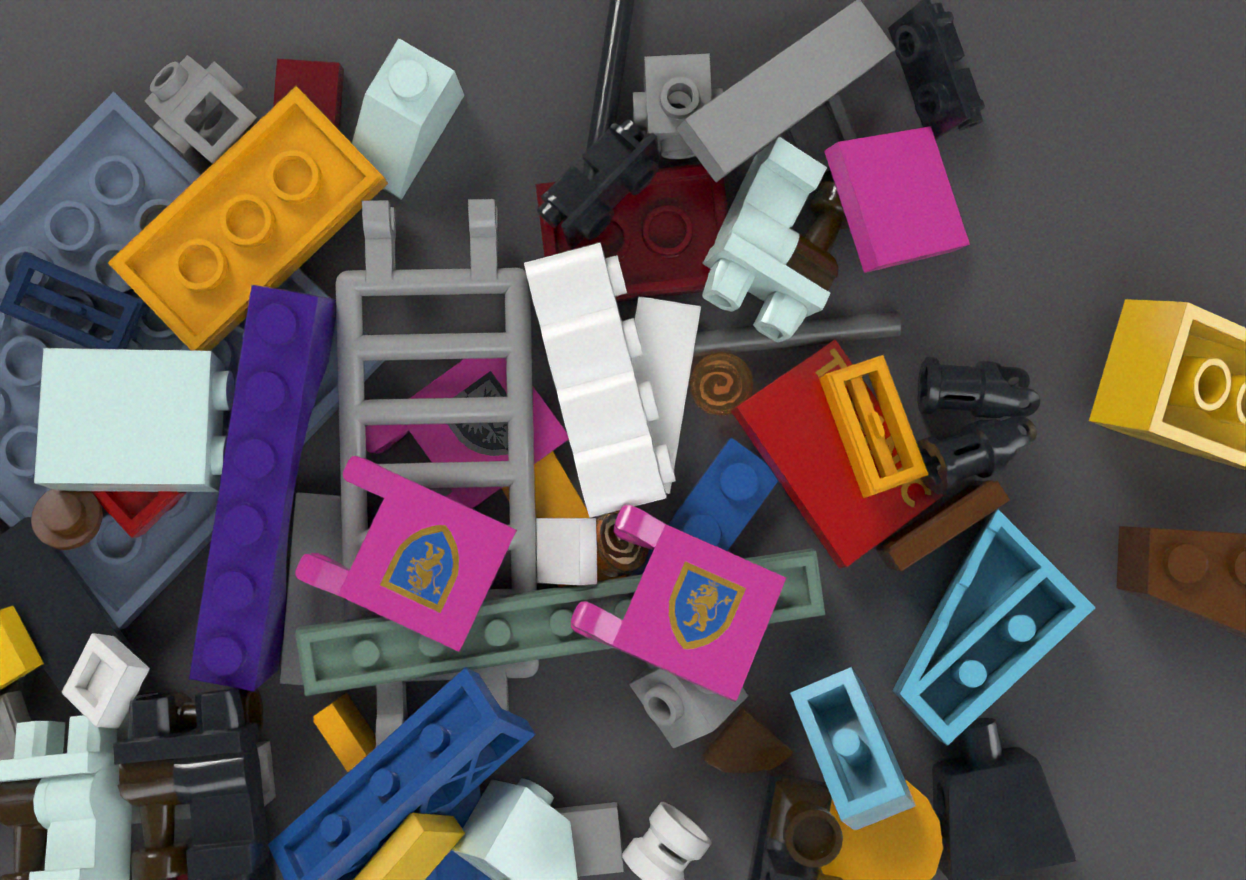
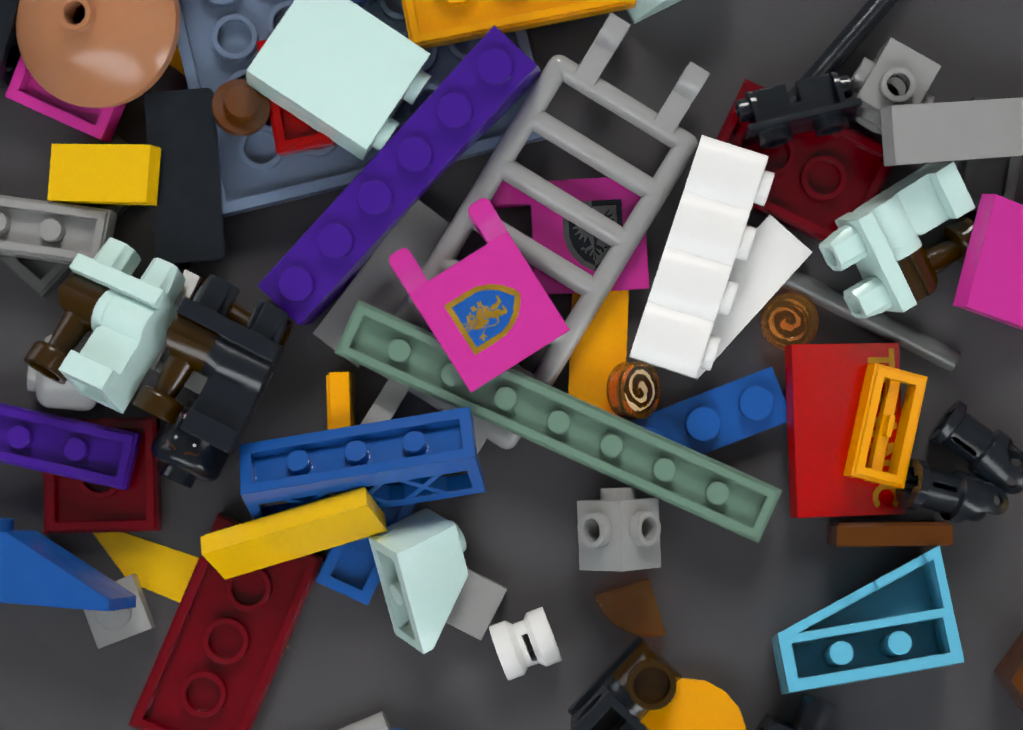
camera: 35 degrees right, 0 degrees up
(105, 681) = (199, 247): white plate -> none
(566, 551) = (594, 370): white tile -> none
(693, 609) = (664, 471): dark pink flag -> none
(852, 750) = (715, 654): medium azure brick -> none

